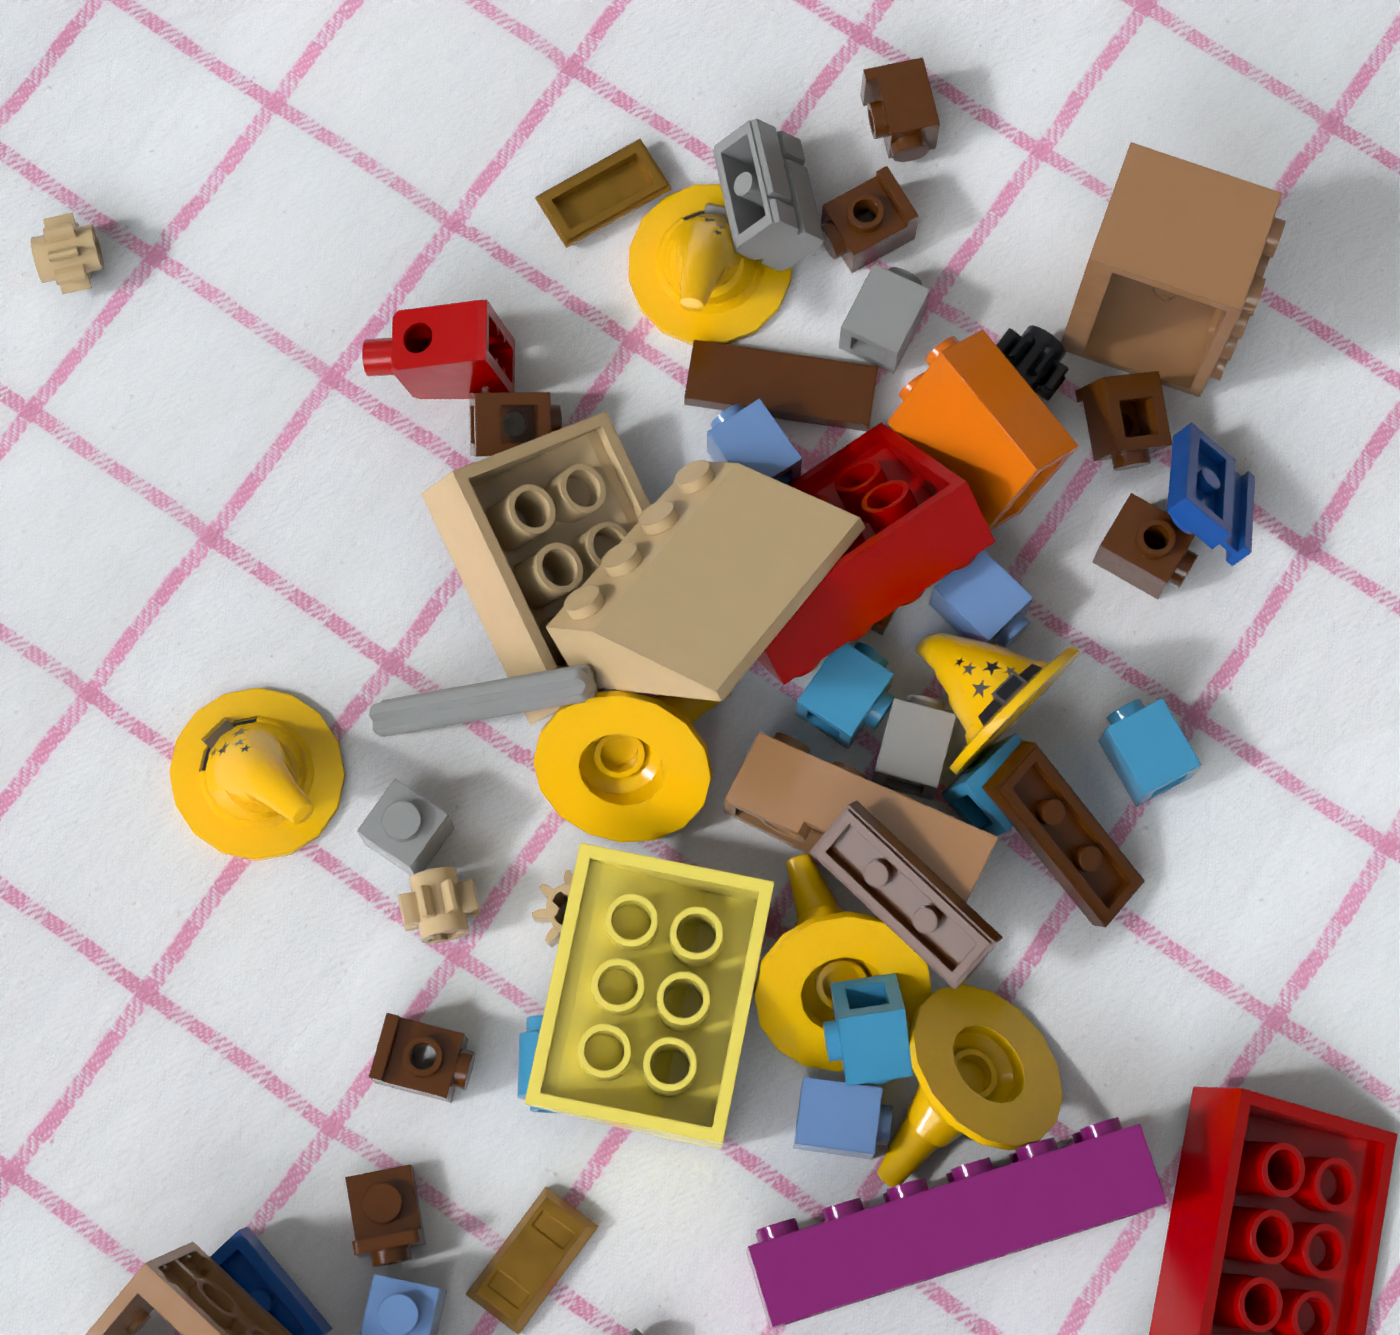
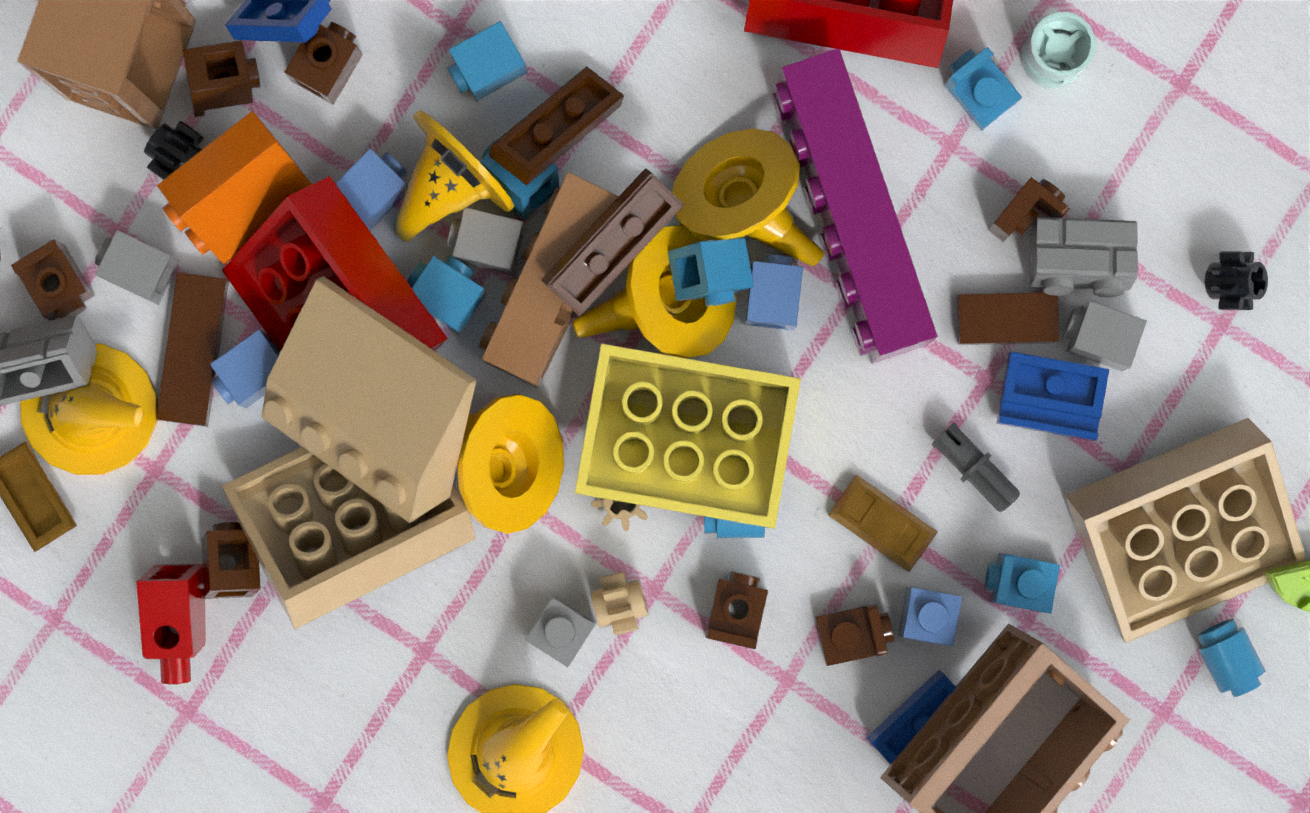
camera: 90 degrees left, 10 degrees up
(484, 700) = (462, 573): light grey axle -> none

